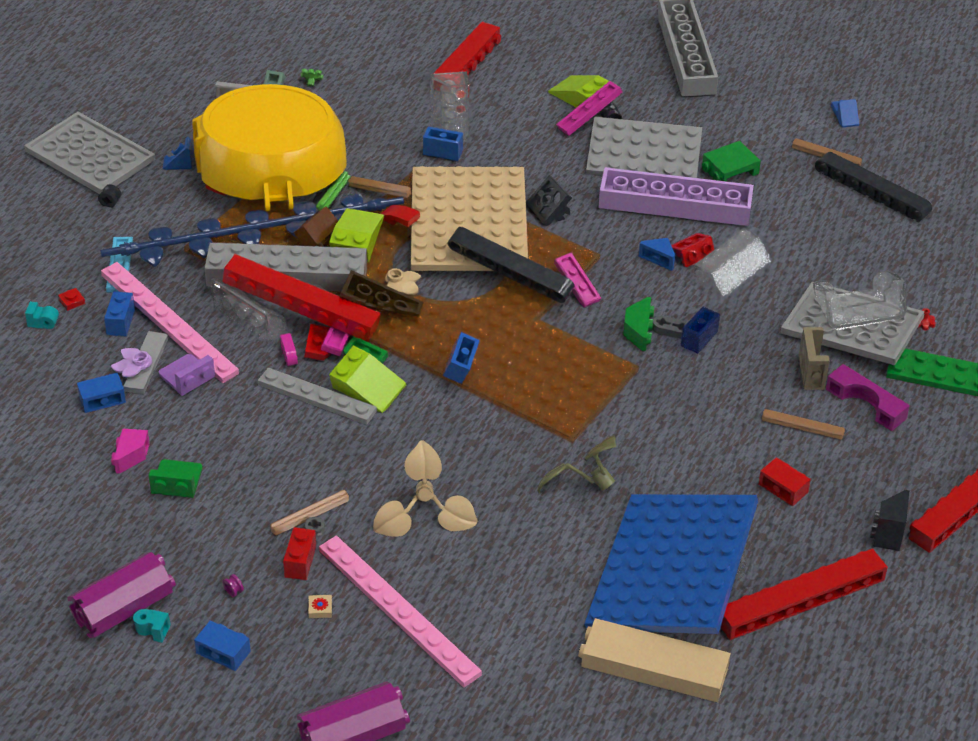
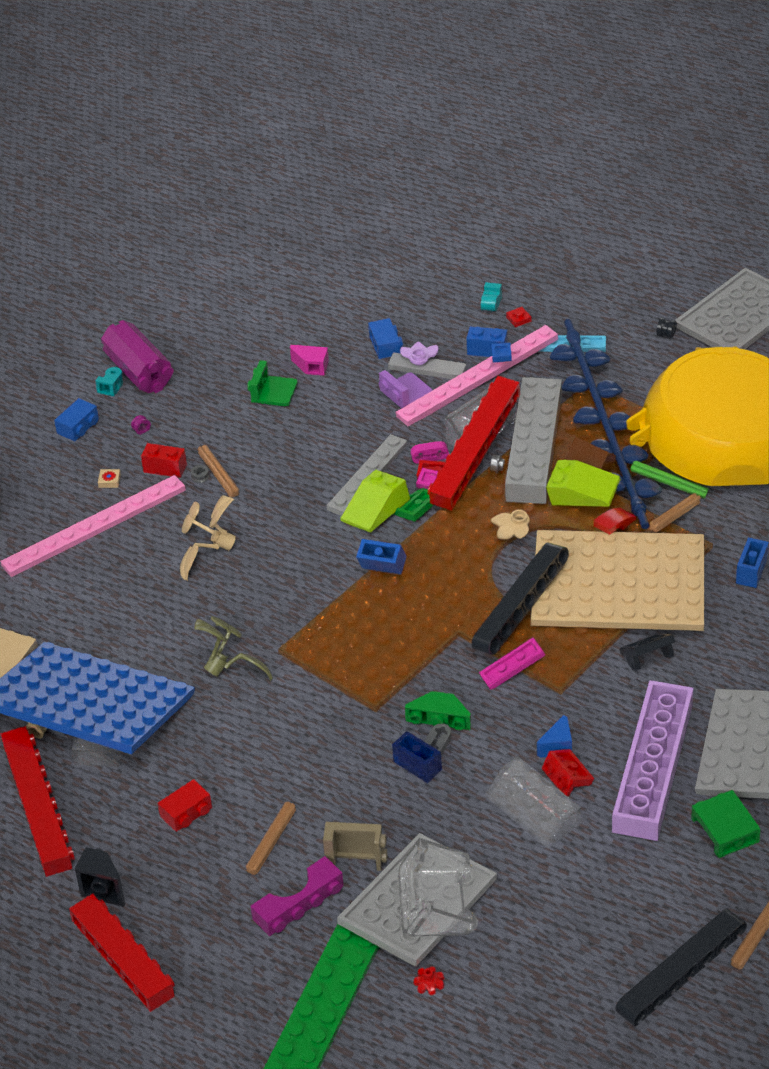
camera: 100 degrees right, 0 degrees up
(152, 292) = (501, 352): none -> blue plate
(378, 296) = (480, 497): dark brown wedge -> none

